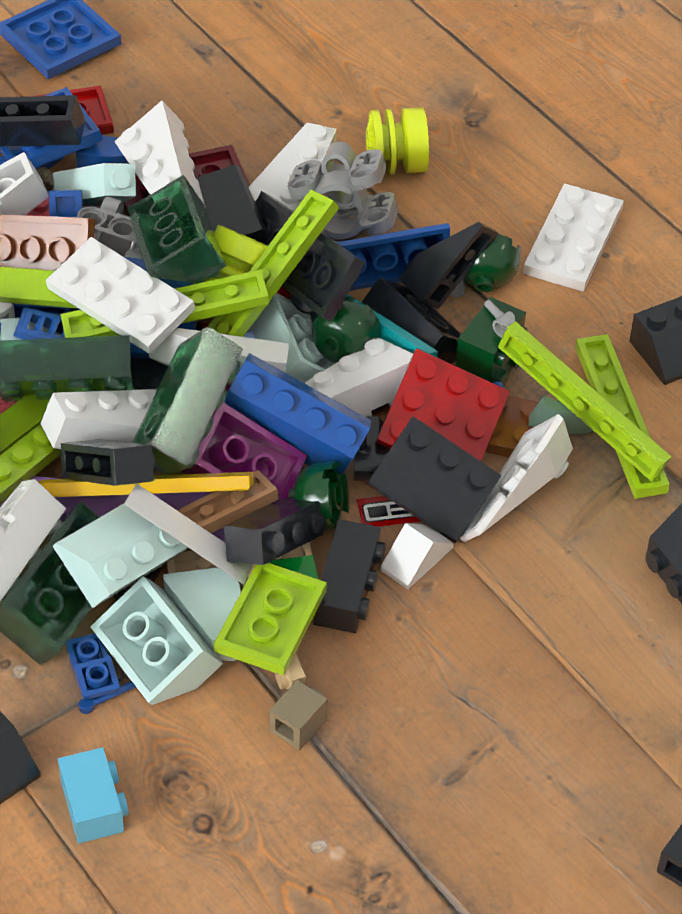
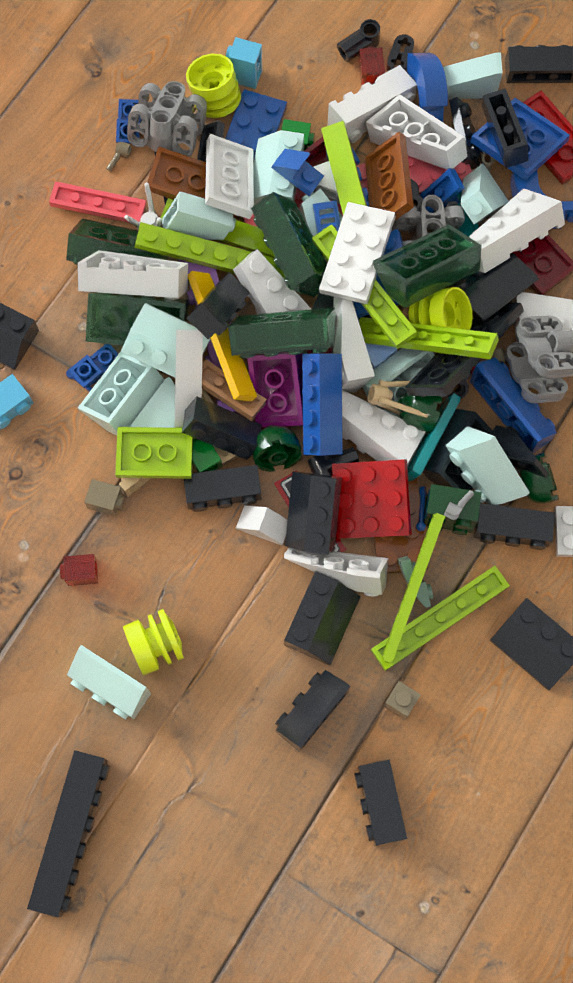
camera: 70 degrees right, 25 degrees up
(313, 354) = (382, 396): none -> tan plant
(393, 775) = (79, 570): none -> clear red brick
(453, 283) = (486, 467): none -> light aqua slope
(540, 709) = (153, 642): none -> neon yellow wheel
(542, 296) = (515, 526): none -> black brick
(570, 533) = (322, 618): none -> black slope
(576, 783) = (107, 683): none -> light aqua slope

